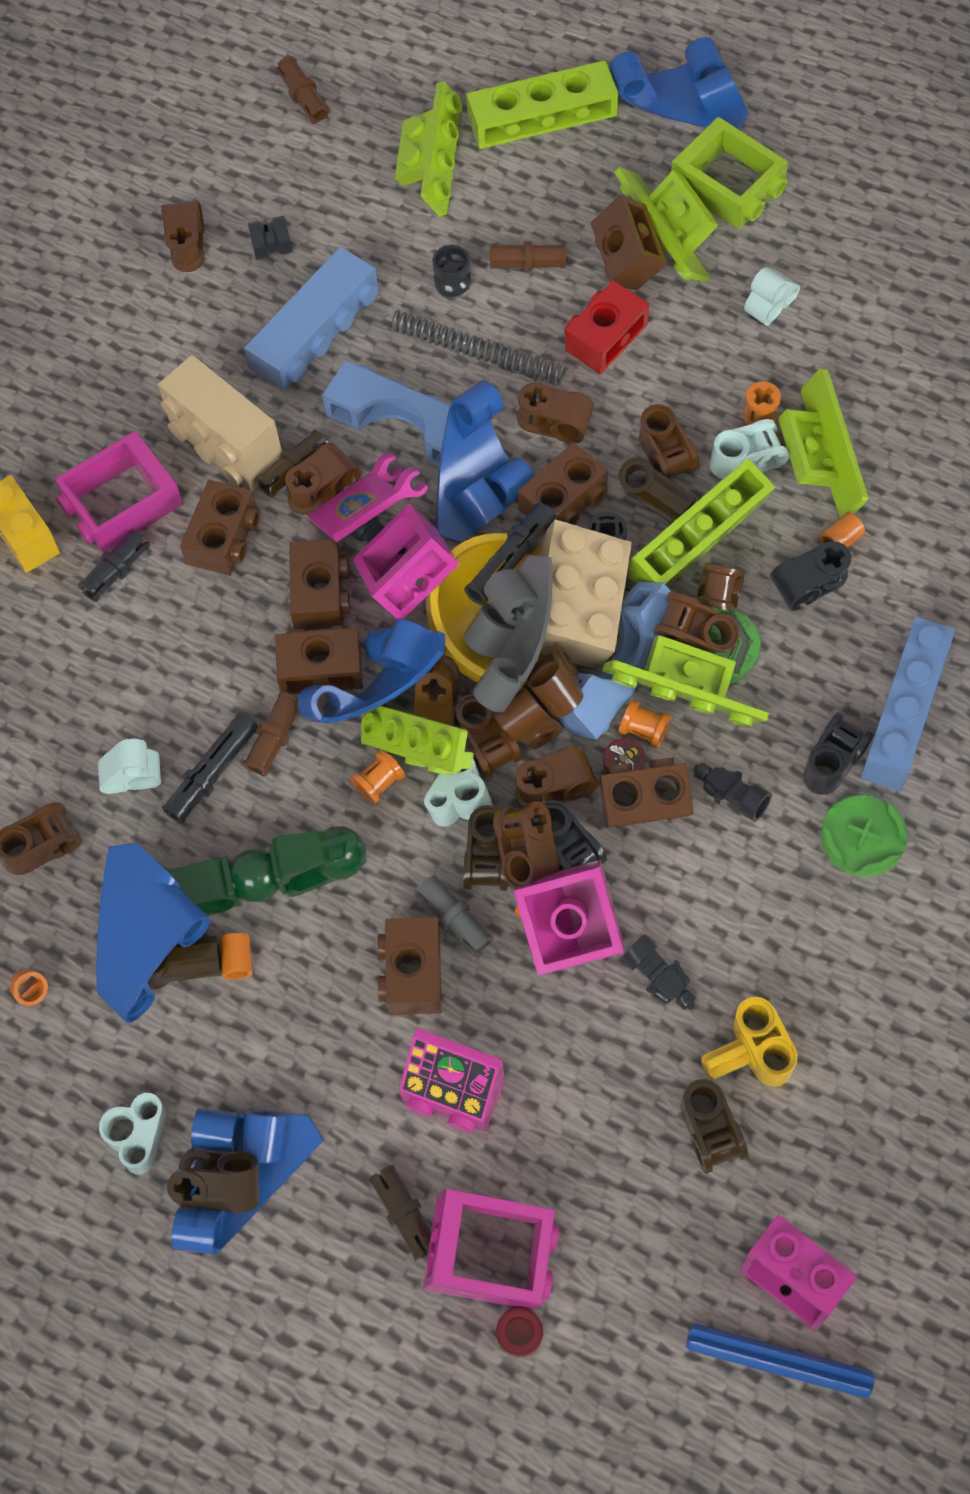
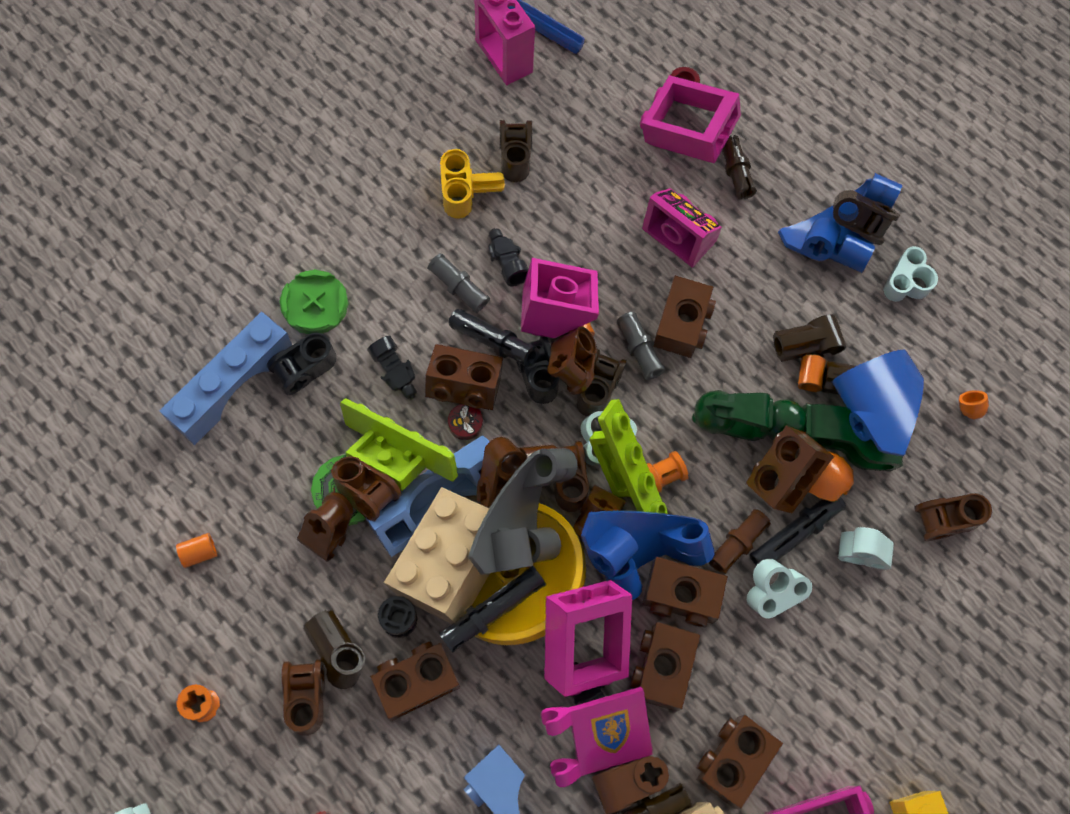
camera: 170 degrees left, 5 degrees up
(113, 565) = (843, 761): black pin -> none
(192, 830) = (834, 480): none -> orange hair
(218, 696) = (783, 594): none -> light aqua piece
(238, 808) = (794, 475): none -> reddish brown brick
(239, 1000) = (816, 338): none -> dark brown piece
(474, 470) = (487, 721): blue panel -> none
(557, 414) = (383, 766): reddish brown piece -> none
(557, 777) = (523, 418): reddish brown piece -> none
(617, 841) = (503, 342): none -> black pin
(645, 723) = (436, 434): orange bush -> none
(701, 526) = (312, 588): lime brick -> none
(703, 914) = (458, 283): none -> dark grey pin
(753, 442) = (227, 662): light aqua piece -> none
(806, 576) = (248, 517): black piece -> none
(822, 446) = (166, 642): lime bracket -> none

